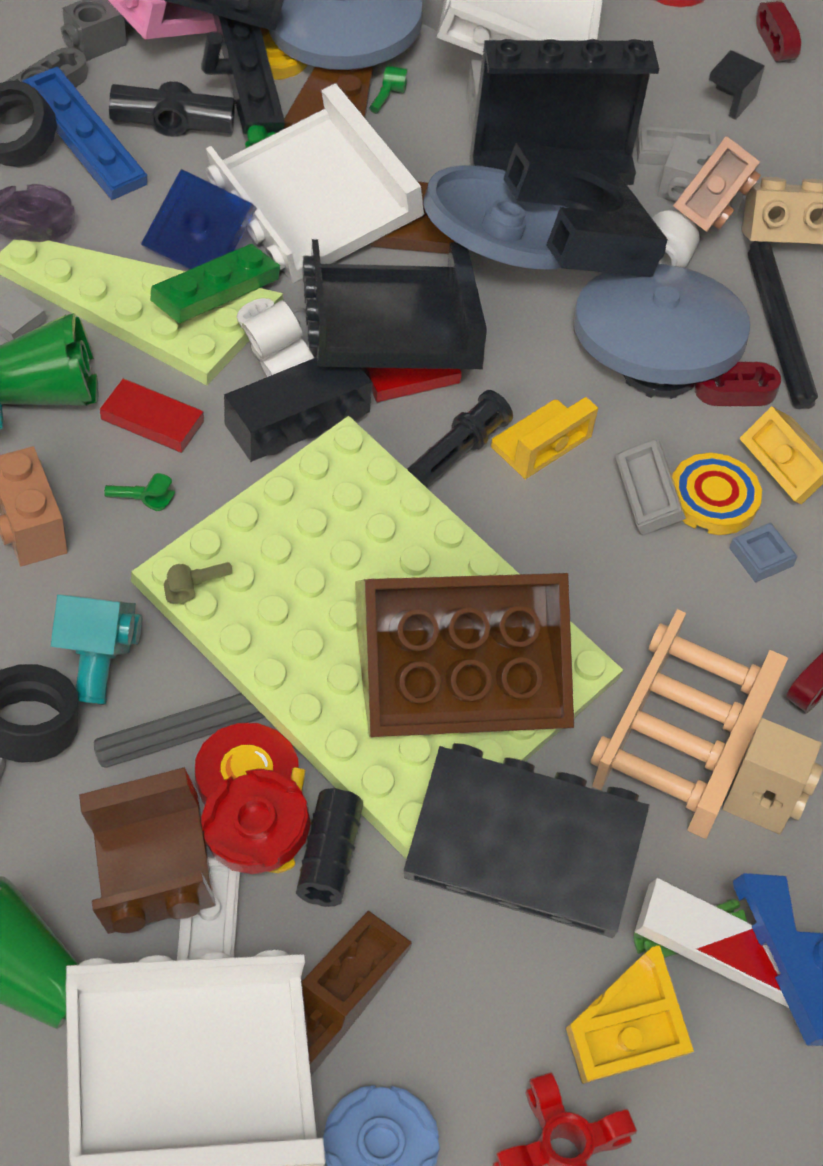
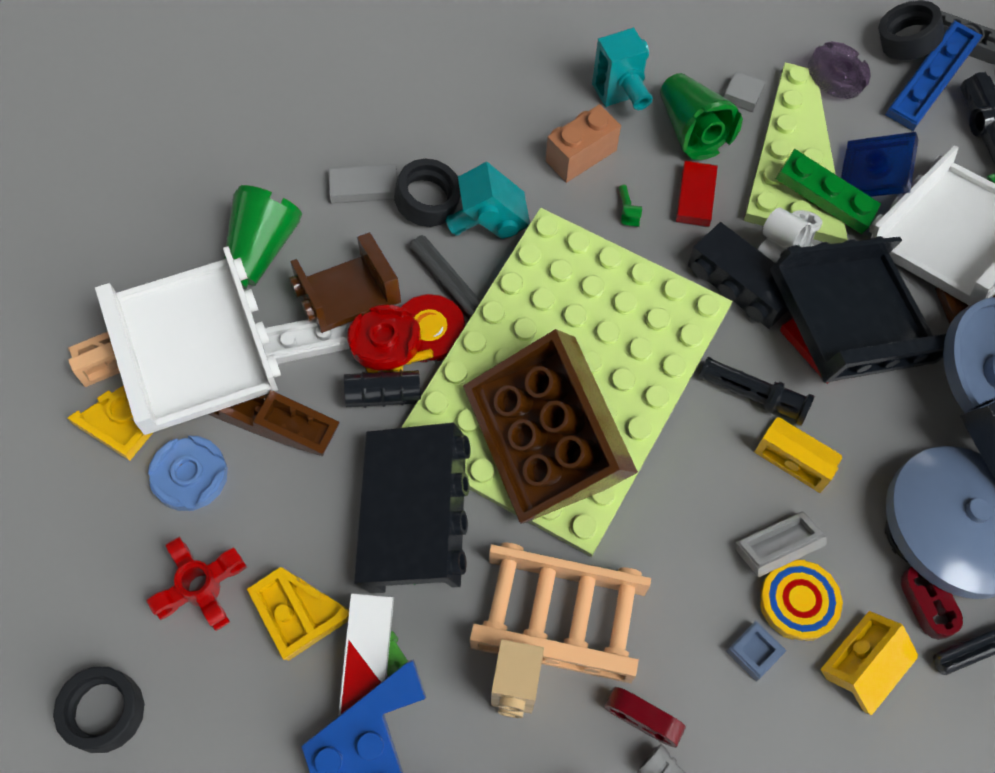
camera: 80 degrees right, 10 degrees up
(181, 580) = (533, 232): olive hand -> none

